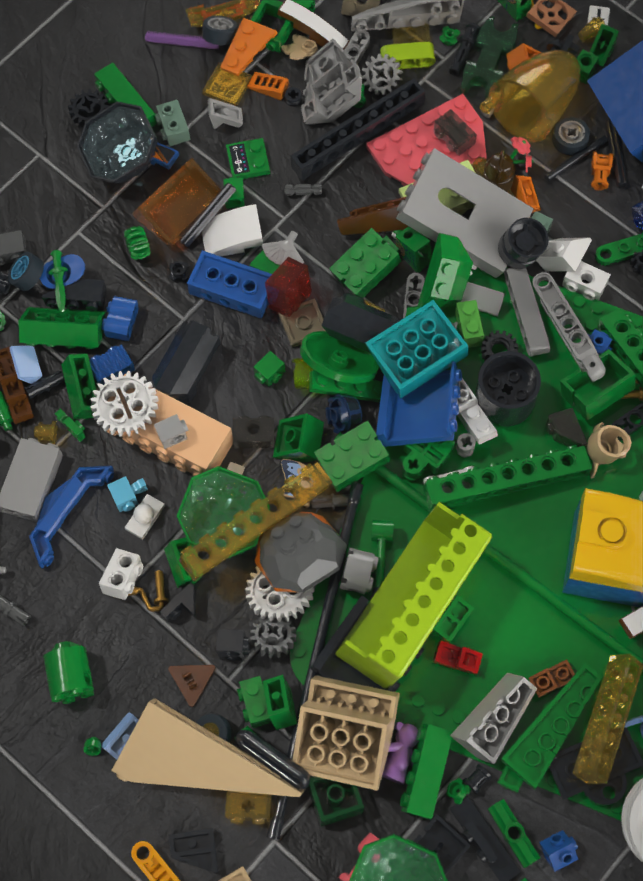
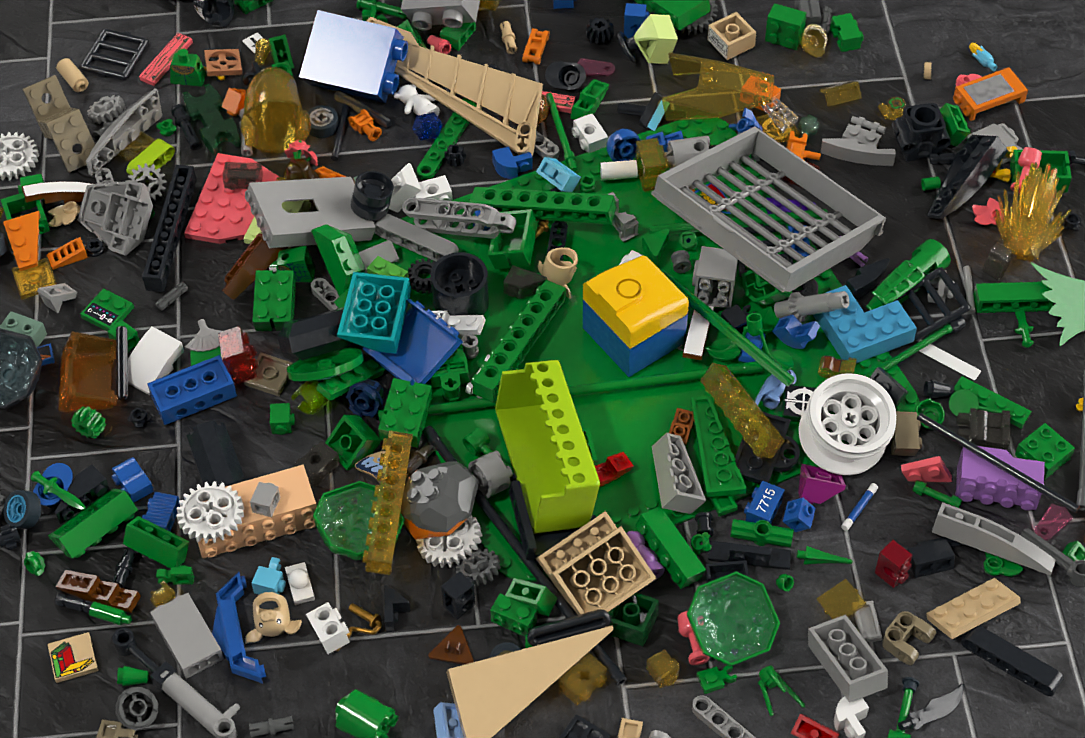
camera: 50 degrees left, 15 degrees down
(26, 363) = (95, 566): light blue slope -> none
(92, 527) = (271, 621): none -> tan piece
(173, 554) = (362, 583): green brick -> none
(313, 862) = (663, 669): none -> clear yellow brick
(542, 812) = (764, 503): none -> blue brick
(605, 842) = (818, 484): none -> magenta slope

